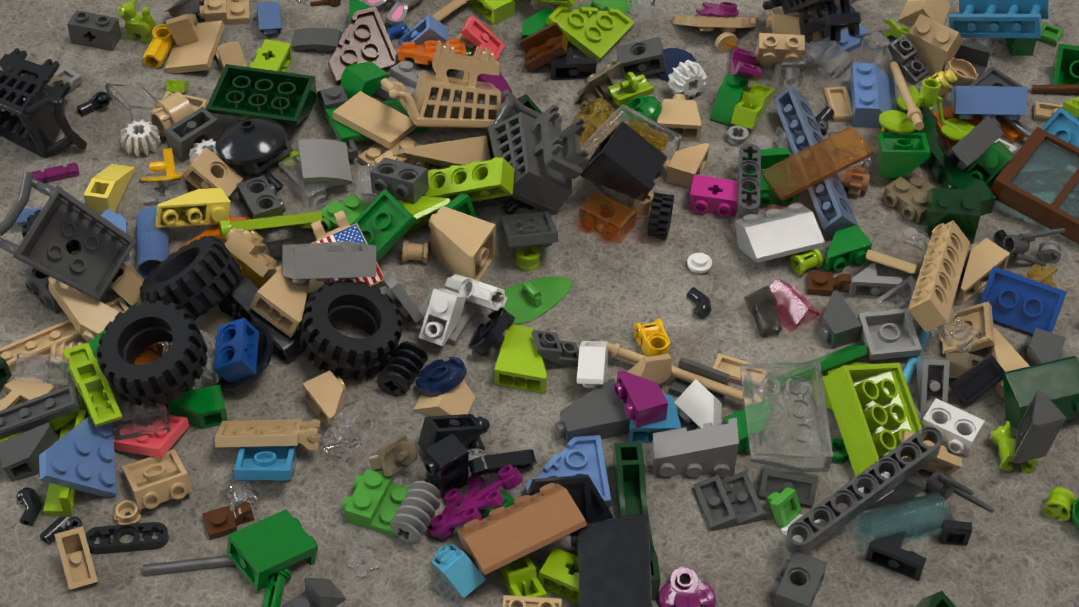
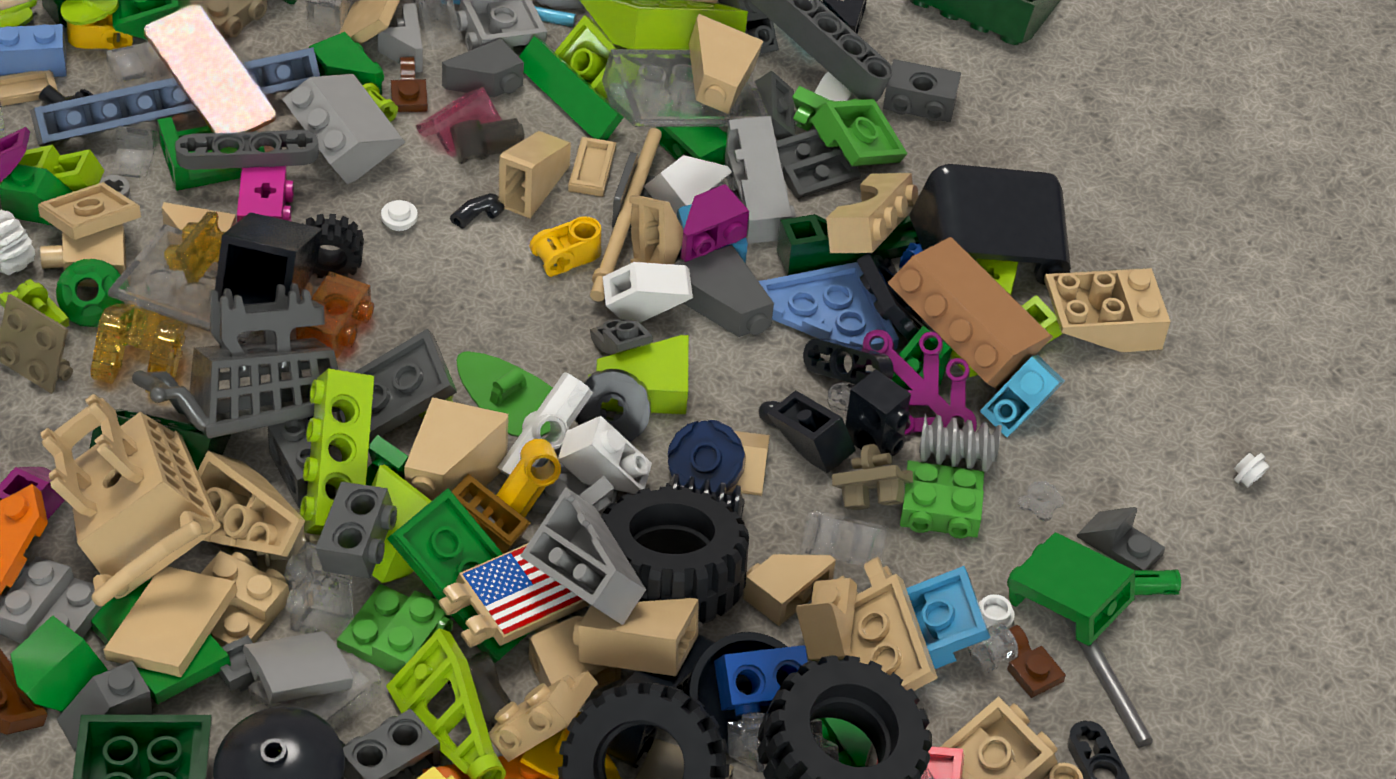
camera: 105 degrees left, 0 degrees up
(271, 506) = (997, 610): none -> white plate
(285, 410) = (828, 619): none -> tan slope
(423, 264) = (508, 524): none -> pearl gold slope
(438, 278) = (528, 482): none -> yellow piece
(618, 481) = (865, 225): none -> tan arch
(703, 110) = (89, 210): none -> tan tile
(725, 325) = (531, 172): none -> tan slope
(745, 524) = (859, 131): none -> bright green plate
(798, 423) = (721, 62): none -> tan slope

